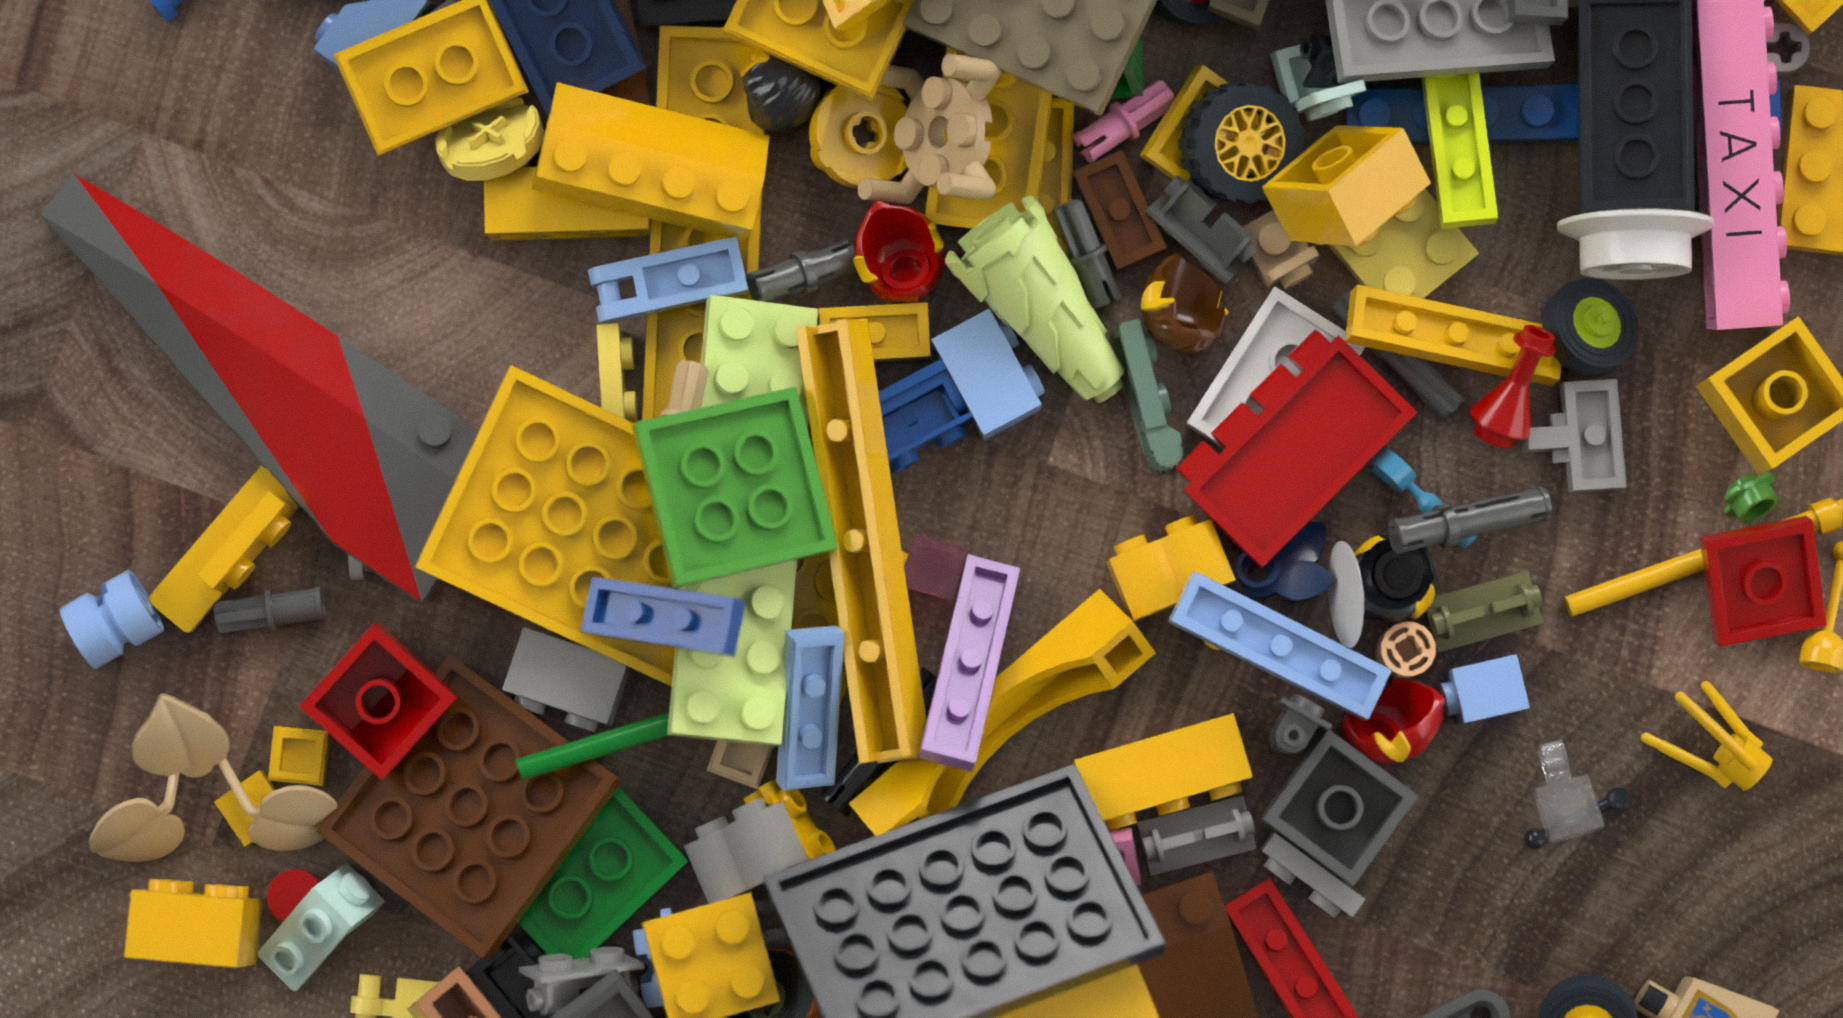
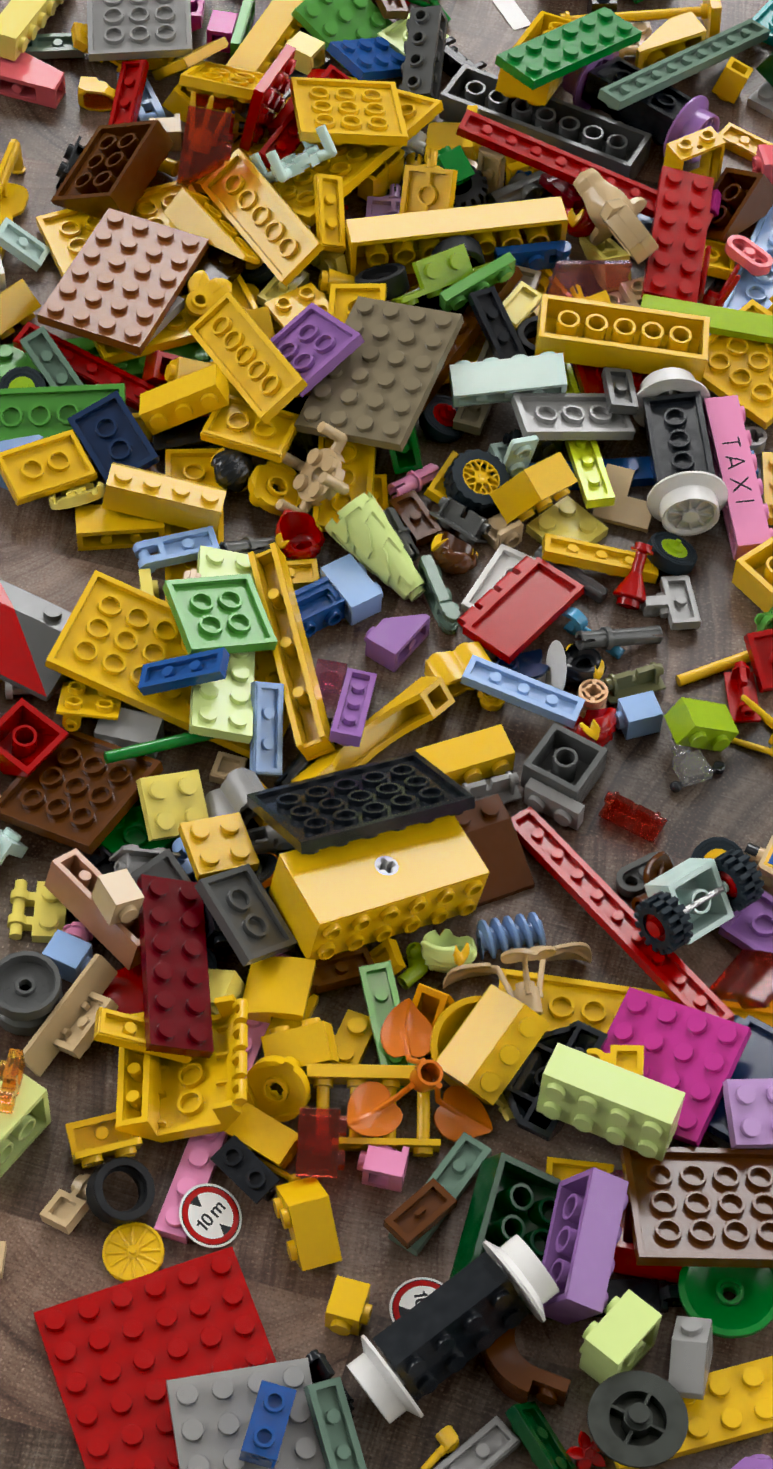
camera: 10 degrees left, 30 degrees down
(487, 636) = (84, 701): none -> yellow hinge
(636, 861) = (171, 801): none -> light yellow plate
(1058, 495) = (396, 639): none -> medium lavender slope
(1295, 724) = (536, 723): dark grey hinge -> none
(1450, 902) = (632, 817): none -> clear red hinge
(1523, 214) = (627, 511): none -> tan tile
(1596, 735) = (701, 724): none -> lime brick
(1679, 649) = (740, 683): none -> red hinge

